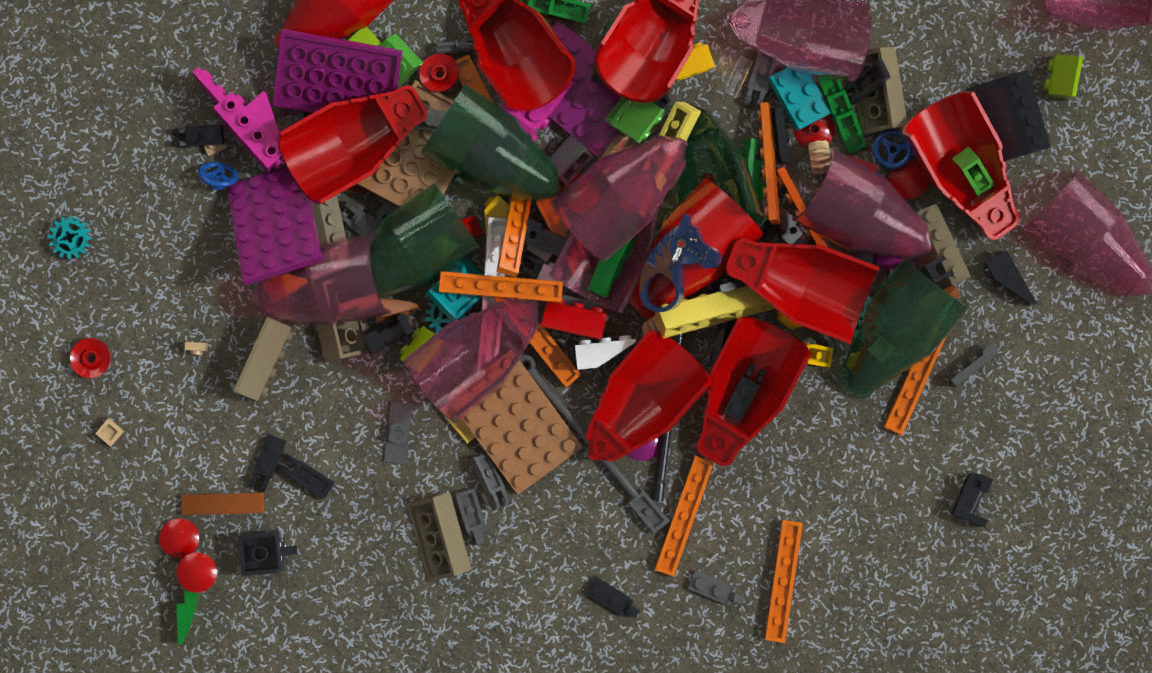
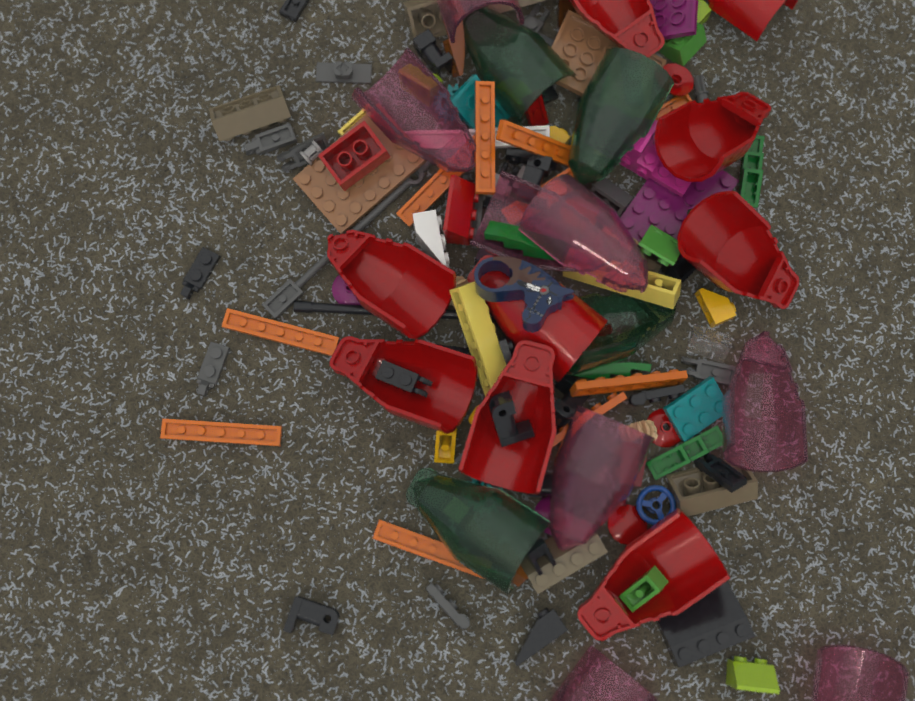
camera: 80 degrees right, 10 degrees down
(495, 471) = (311, 152): none -> light grey bush
(508, 425) = (354, 155): none -> red brick
(802, 294) = (503, 412): none -> black piece

